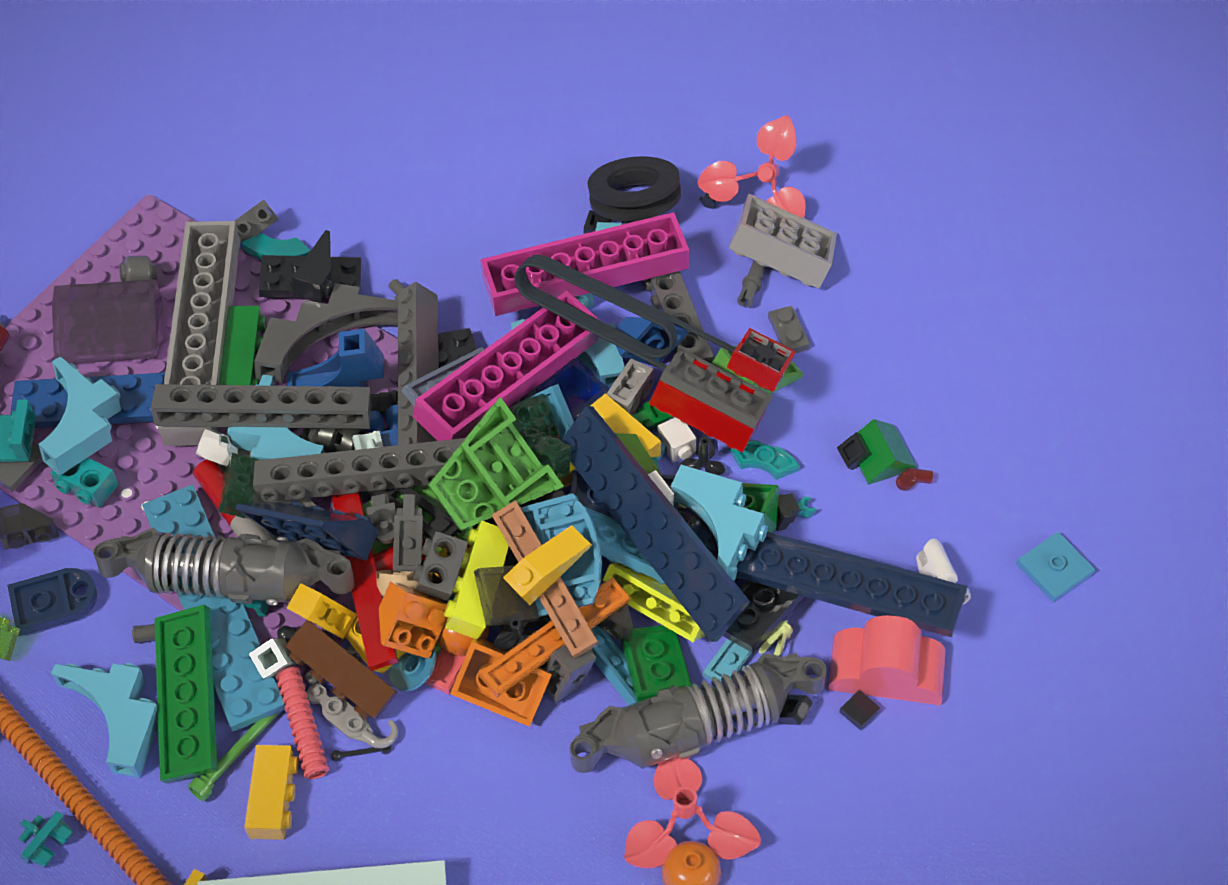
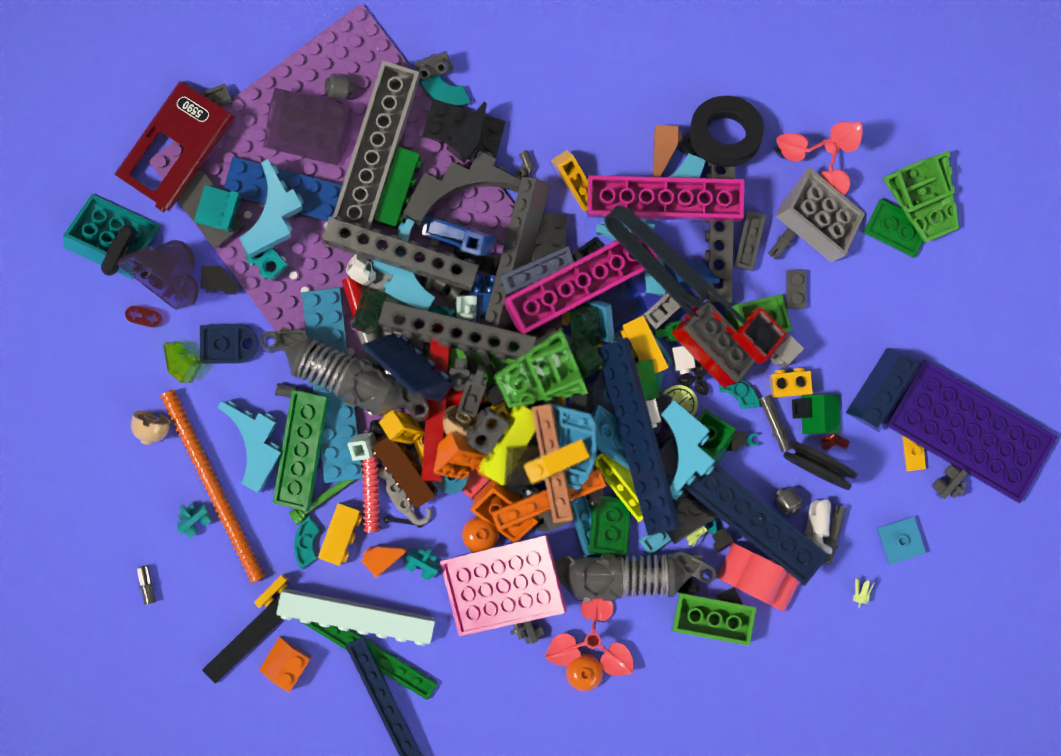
camera: 10 degrees right, 30 degrees up
(221, 822) = (305, 541): none -> teal tile
(342, 796) = (381, 558): none -> orange slope
(416, 797) = (424, 560): none -> teal hips
(465, 289) = (573, 177): none -> yellow slope
(477, 732) = (479, 534): none -> orange cylinder
(529, 777) = (503, 586): none -> plate
(565, 220) = (665, 143): none -> nougat slope
(581, 834) = (526, 631): none -> dark grey hips
(709, 294) = (749, 240): none -> dark grey plate
(804, 388) = (786, 352): none -> light grey brick
(815, 633) = (721, 538): none -> pearl dark grey piece
(828, 433) = (791, 387): none -> yellow brick
(835, 485) = (779, 431): none -> dark grey pin
(847, 734) = (713, 619): none -> bright green slope
(882, 237) = (893, 228): none -> green tile
(886, 554) = (788, 501): none -> dark grey head
(901, 189) = (926, 195): none -> bright green wedge
(910, 469) = (820, 465): none -> black tyre
(947, 397) = (883, 389): none -> dark blue slope
(961, 568) = (834, 531): none -> dark grey pin
(1019, 460) = (913, 455): none -> yellow plate
(1038, 649) = (862, 597): none -> yellowish green piece
(1080, 415) = (971, 431): none -> dark purple plate
(1085, 467) = (944, 489): none -> dark grey hips

